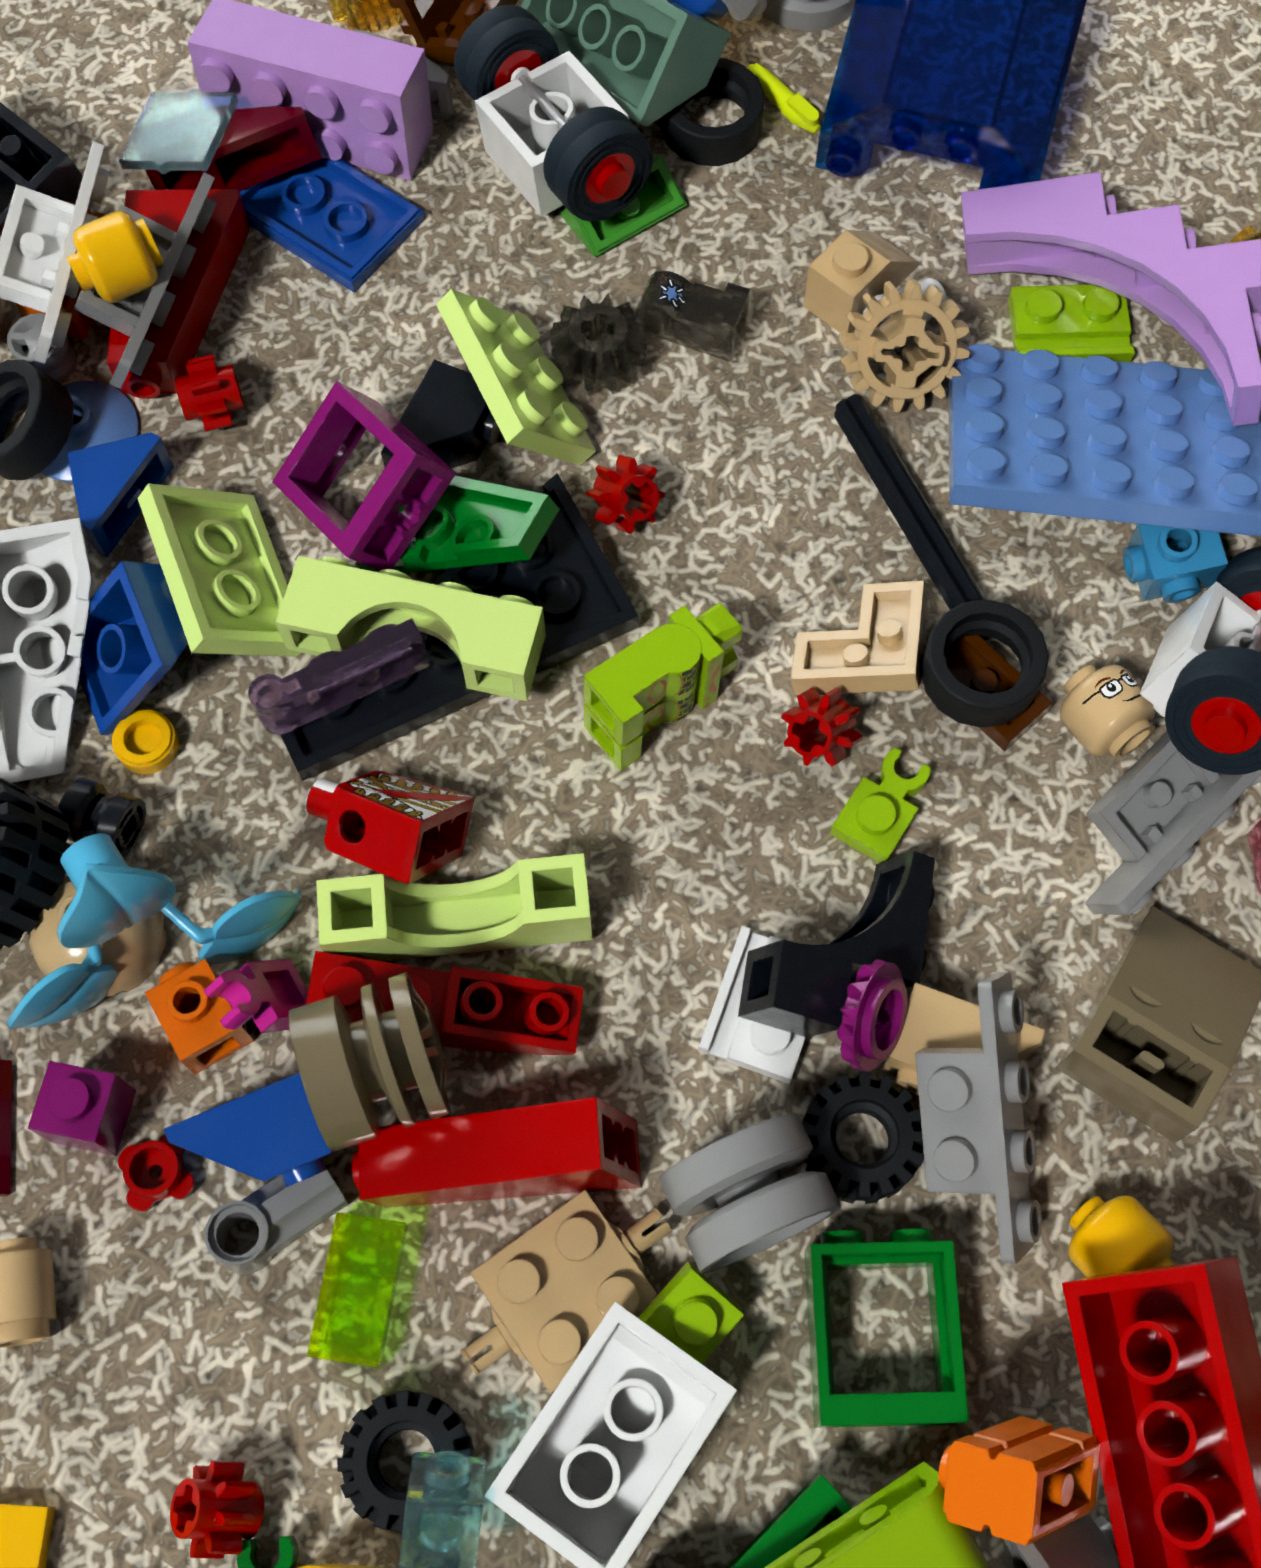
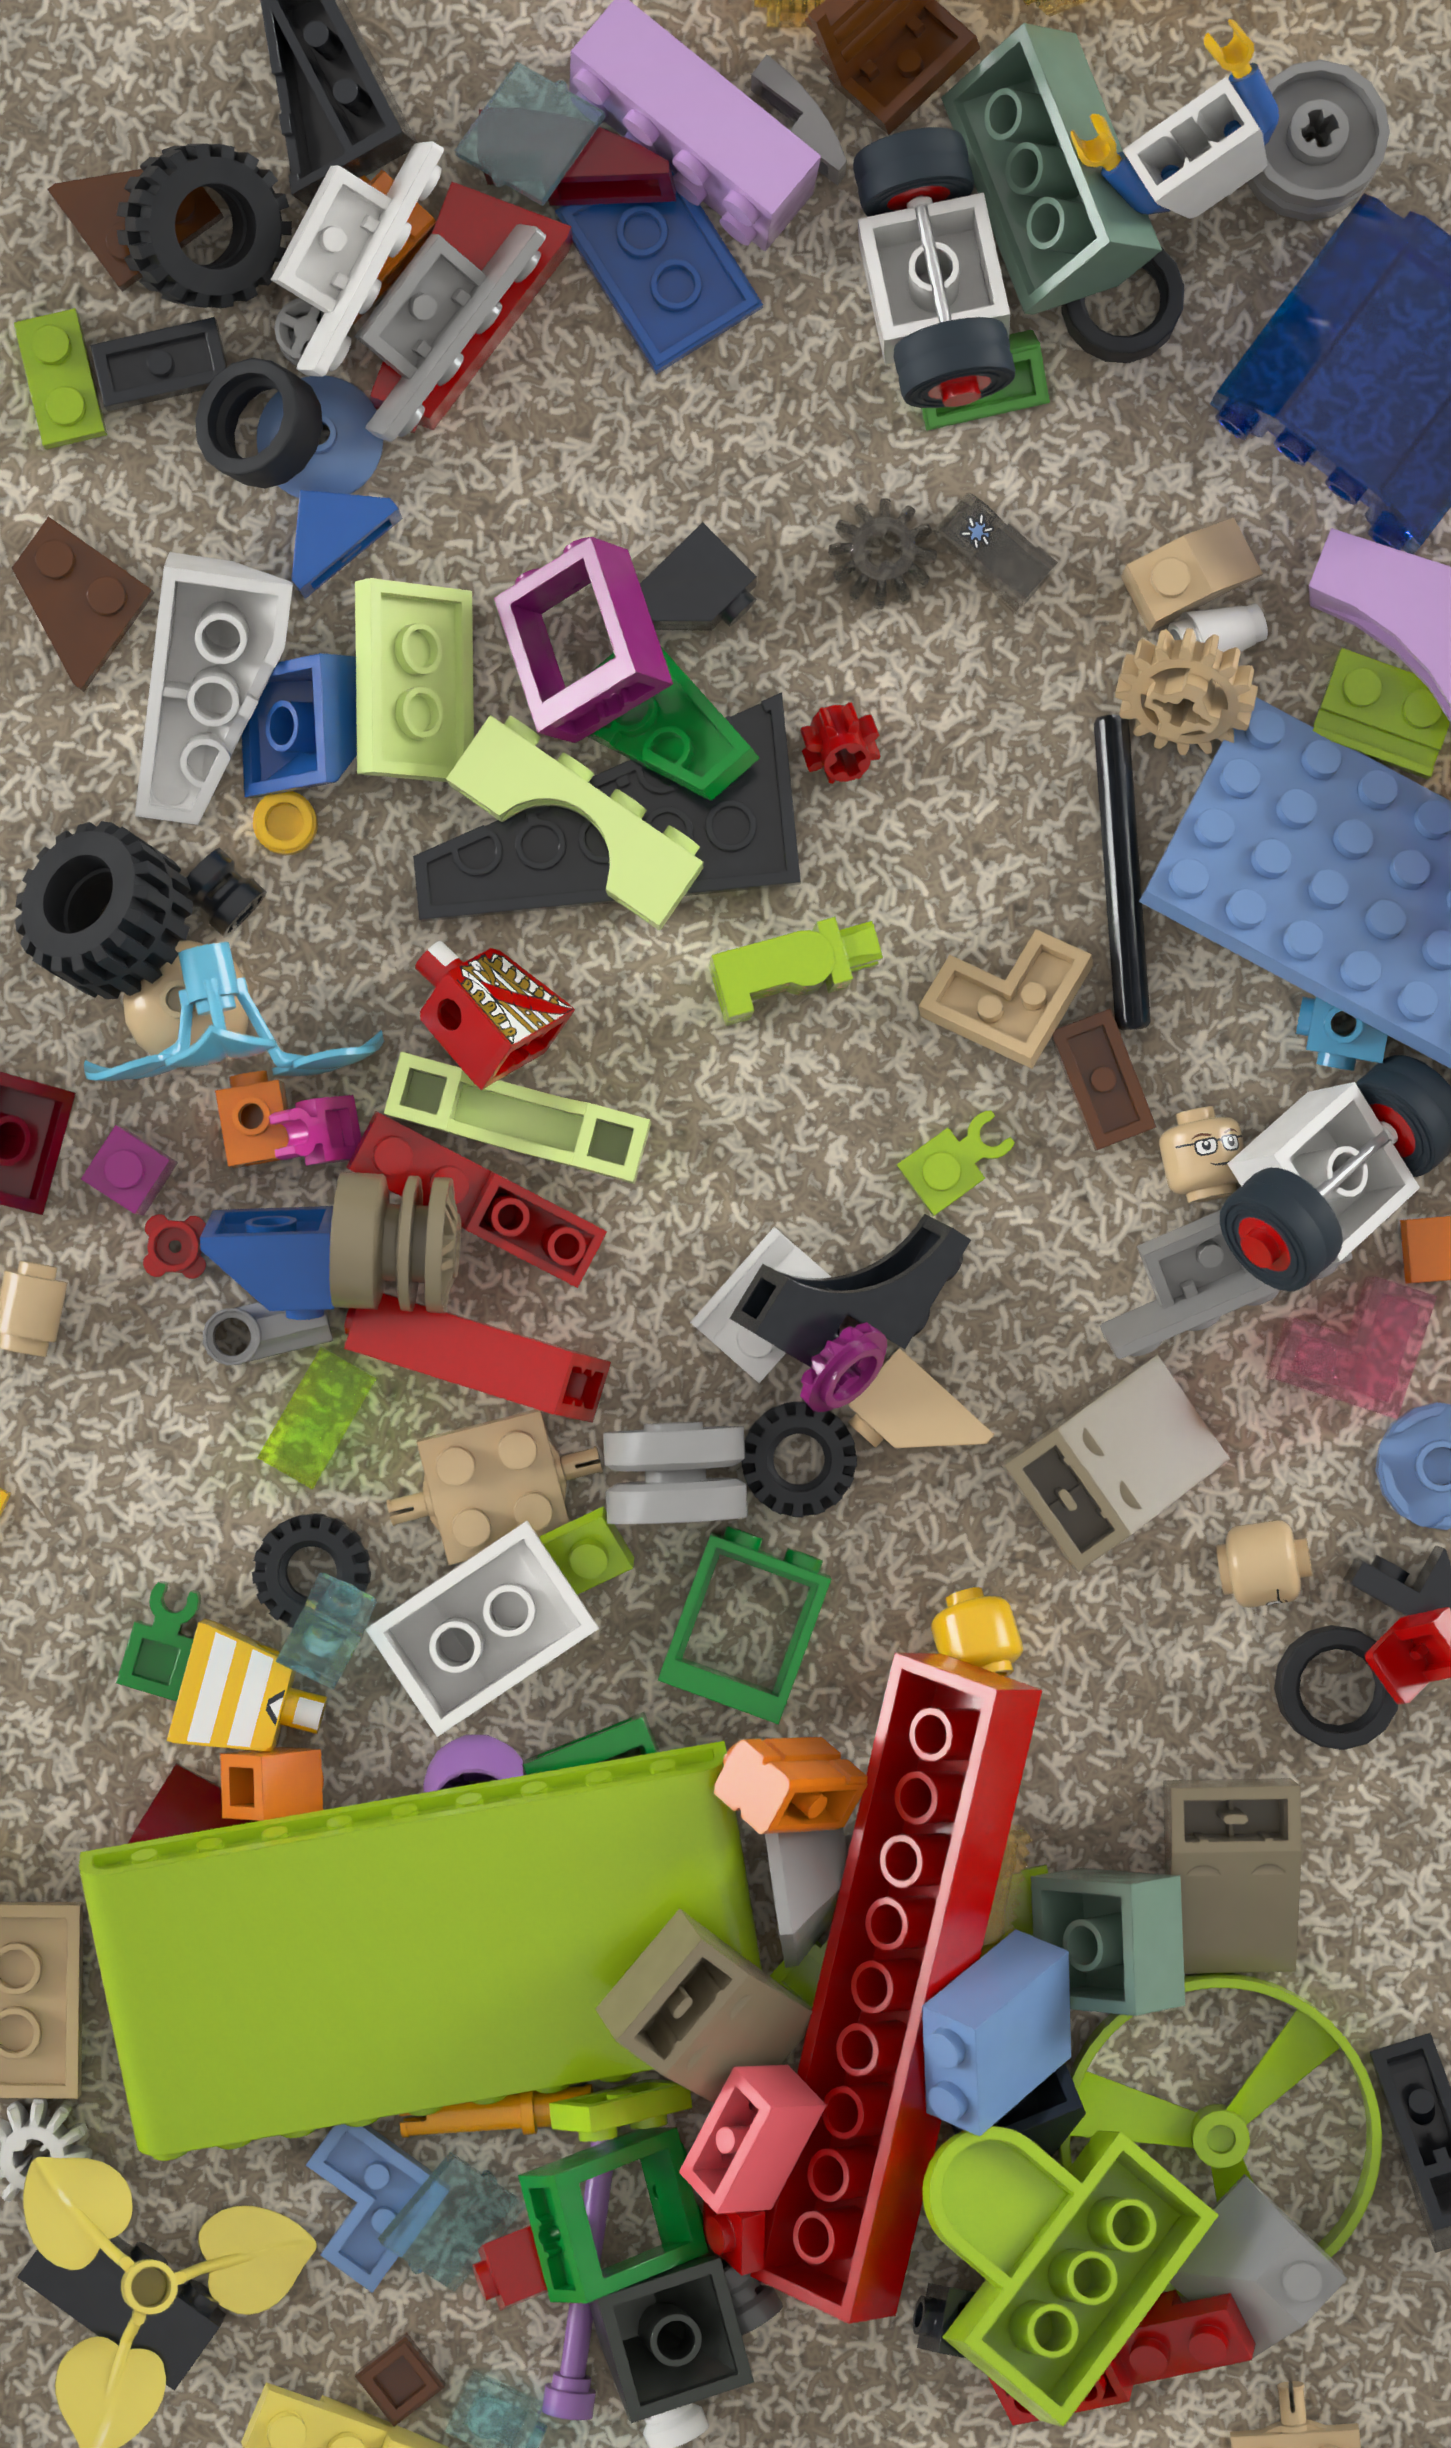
camera: 20 degrees right, 20 degrees up
(115, 256) = (414, 316): yellow head -> none
(209, 392) = (464, 459): red gear -> none
(217, 1509) = (146, 1550): red gear -> none
(338, 678) = (486, 848): clear purple plate -> none
(516, 378) = (778, 574): yellowish green plate -> none
(791, 105) = (1217, 316): neon yellow piece -> none
(821, 726) = (927, 1066): red gear -> none
(977, 1121) = (900, 1486): light grey bracket -> none
(994, 621) = (1150, 1061): black tyre -> none

